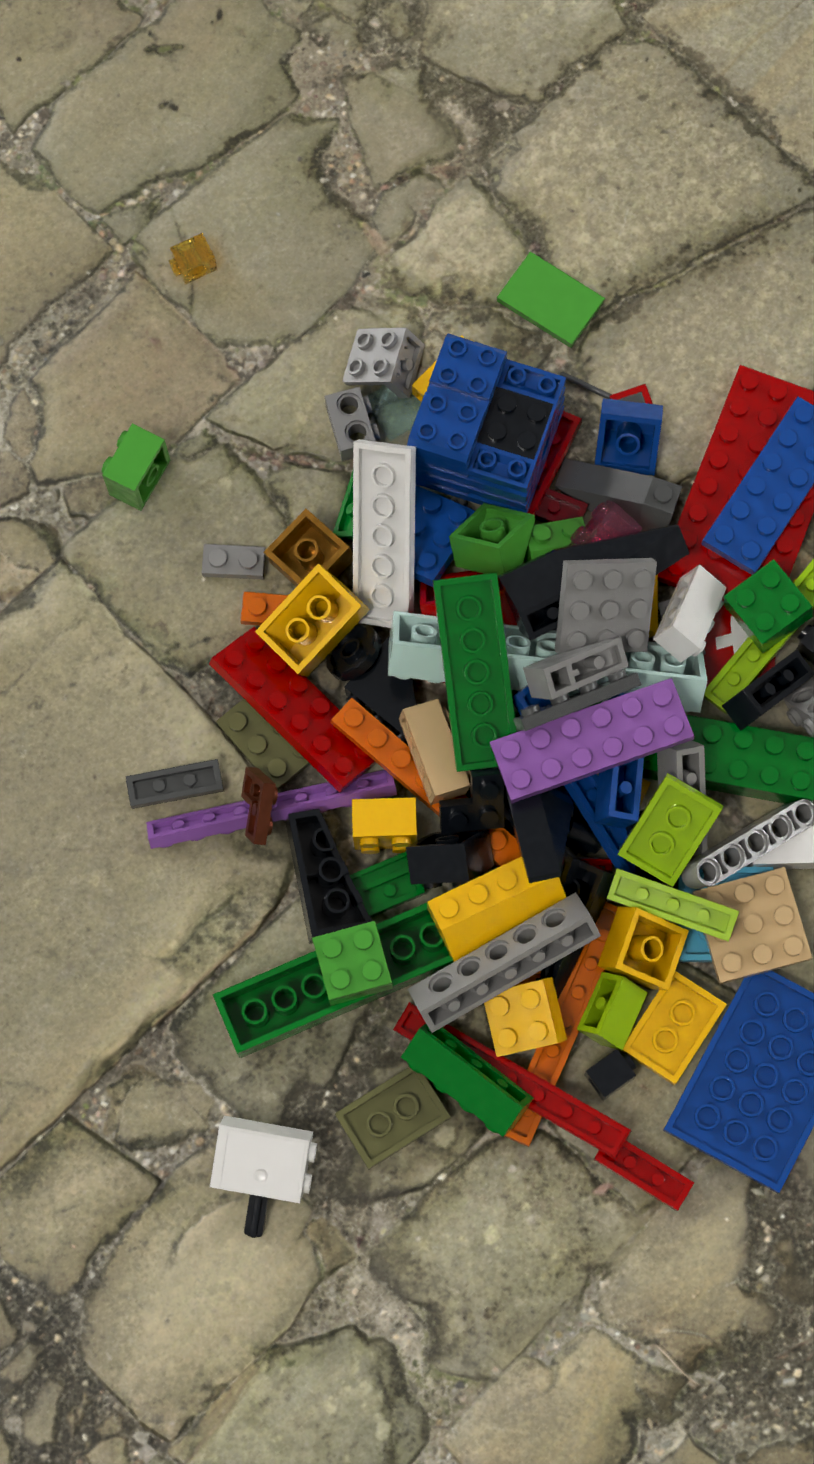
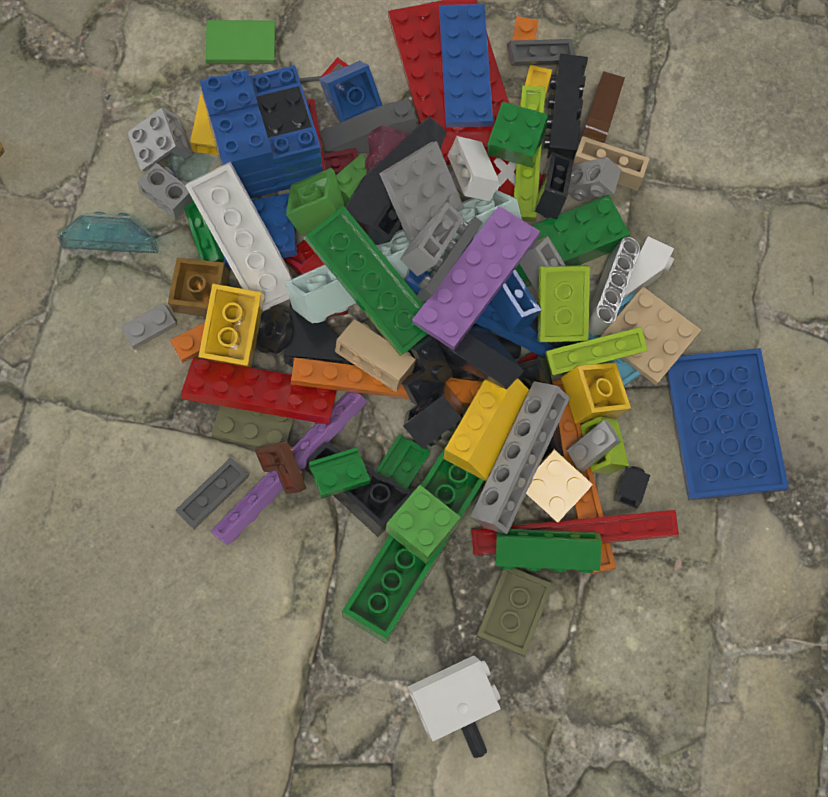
camera: 45 degrees left, 5 degrees down
(135, 466) = (38, 303): bright green brick -> none
(259, 432) = (108, 233): none -> clear light blue wedge
(309, 851) = (339, 473): none -> green plate
(384, 824) = (374, 424): yellow brick -> none
(594, 1003) = (593, 445): none -> light grey plate
(648, 1175) = (702, 534): red plate -> none
(673, 1028) = (649, 432): yellow plate -> none

